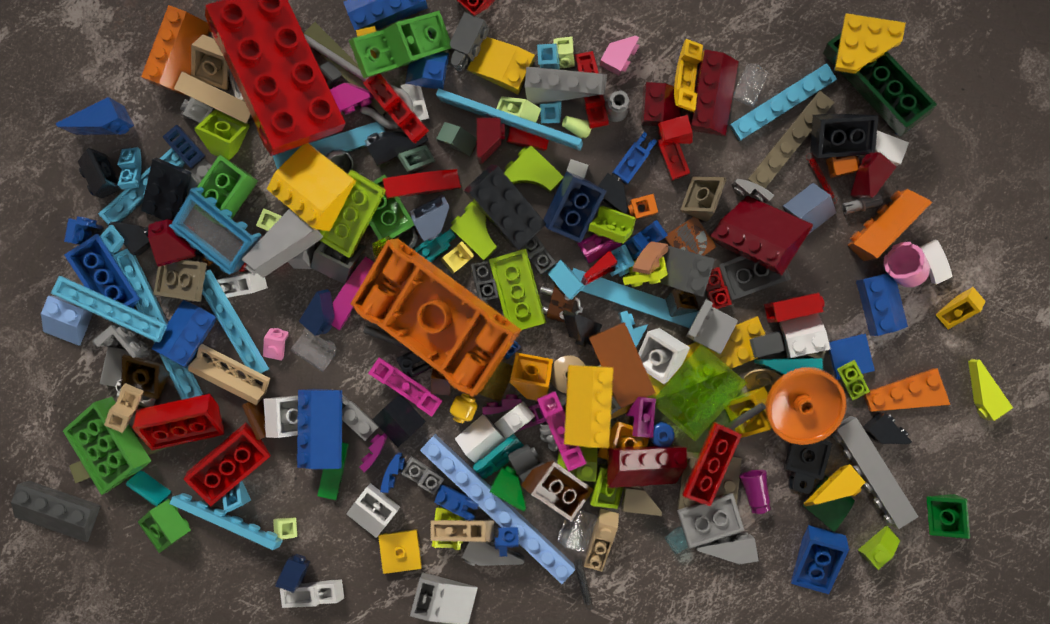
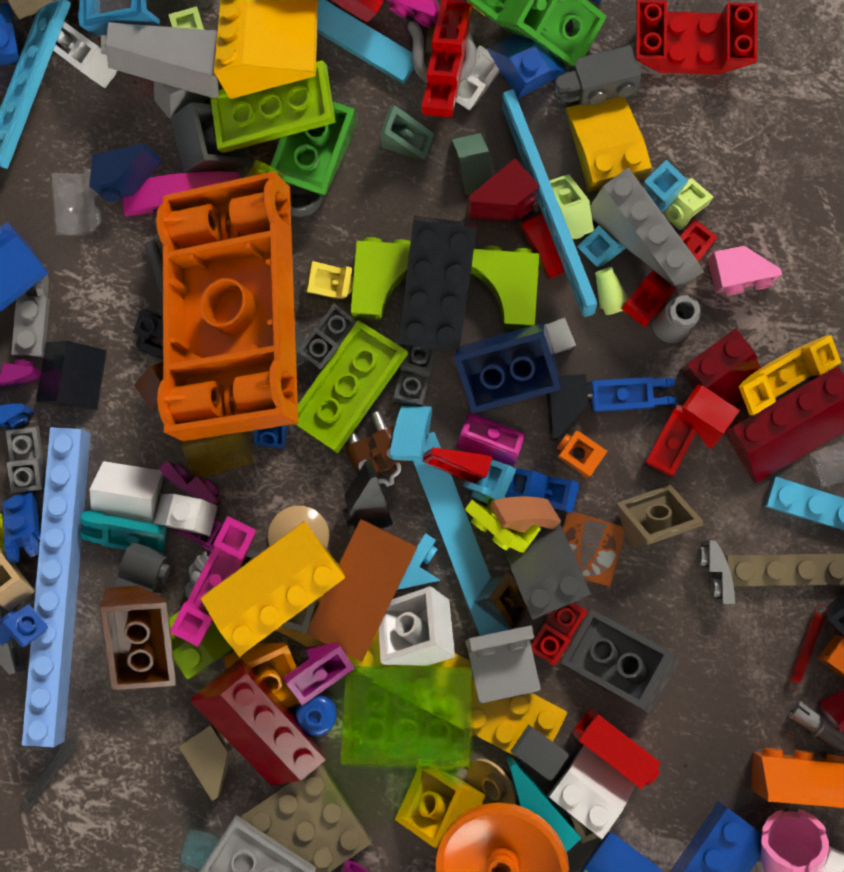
camera: 45 degrees right, 5 degrees down
(275, 343) = (44, 150): bright pink bracket -> none
(341, 159) = (330, 47): dark grey hair -> none
(389, 144) = (393, 85): black slope -> none
(405, 386) = (119, 347): dark pink slope -> none
(421, 183) = (381, 162): red slope -> none
(430, 217) = (346, 206): sand blue slope -> none
(434, 248) = (320, 242): teal hinge -> none
(463, 408) = (147, 440): yellow head -> none
(509, 488) = (88, 576): green slope -> none
(531, 375) = (257, 489): light orange slope -> none
(577, 533) = (109, 711): clear bracket -> none
(601, 539) = (122, 750): tan slope -> none
(602, 495) = (178, 708): lime slope -> none
(612, 224) = (527, 434): lime bracket -> none
(711, 464) = (327, 810): red slope -> none
(746, 416) = (419, 800): dark grey bar -> none
(762, 234) = (673, 628): dark red slope -> none
(811, 205) = (758, 665): sand blue slope -> none

